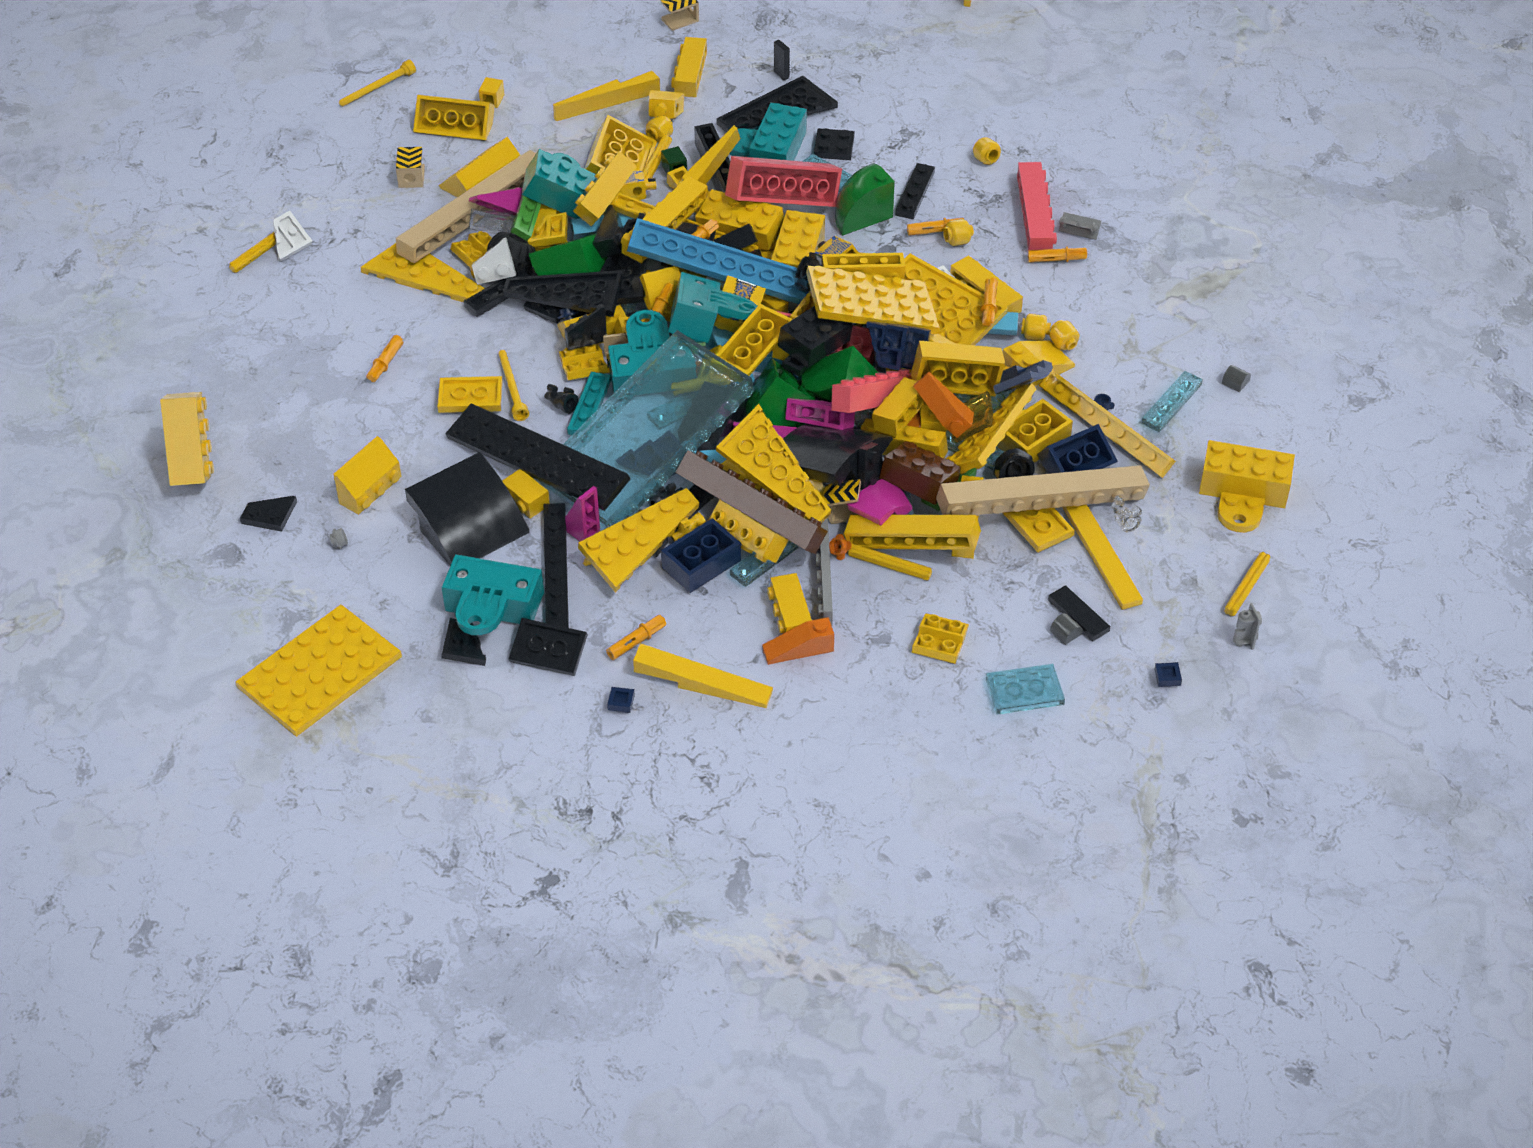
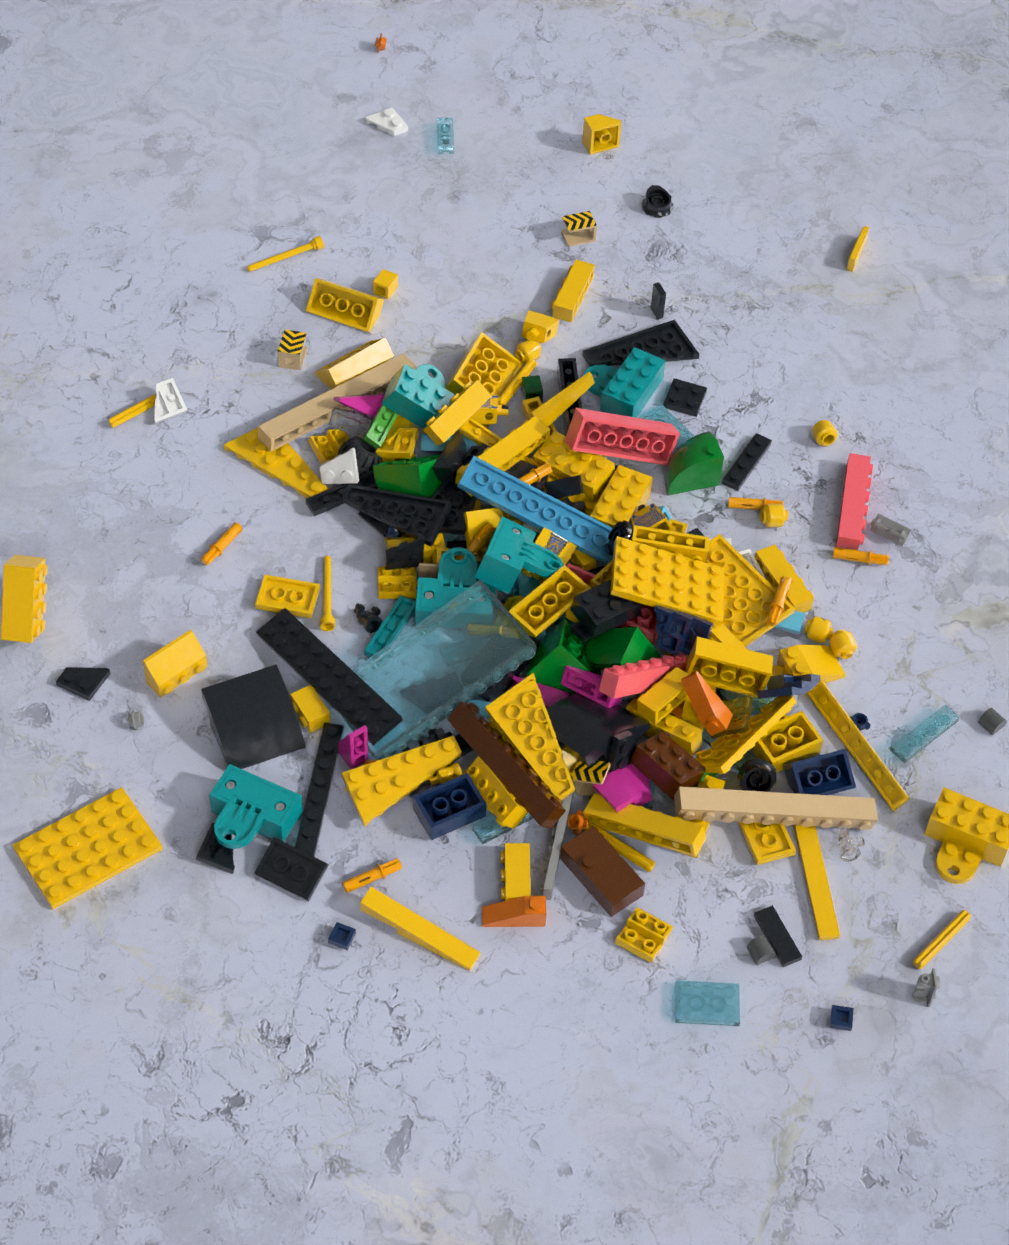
camera: 10 degrees right, 5 degrees up
(606, 96) = (489, 306): yellow slope -> none
(879, 586) = (602, 871): none -> reddish brown brick

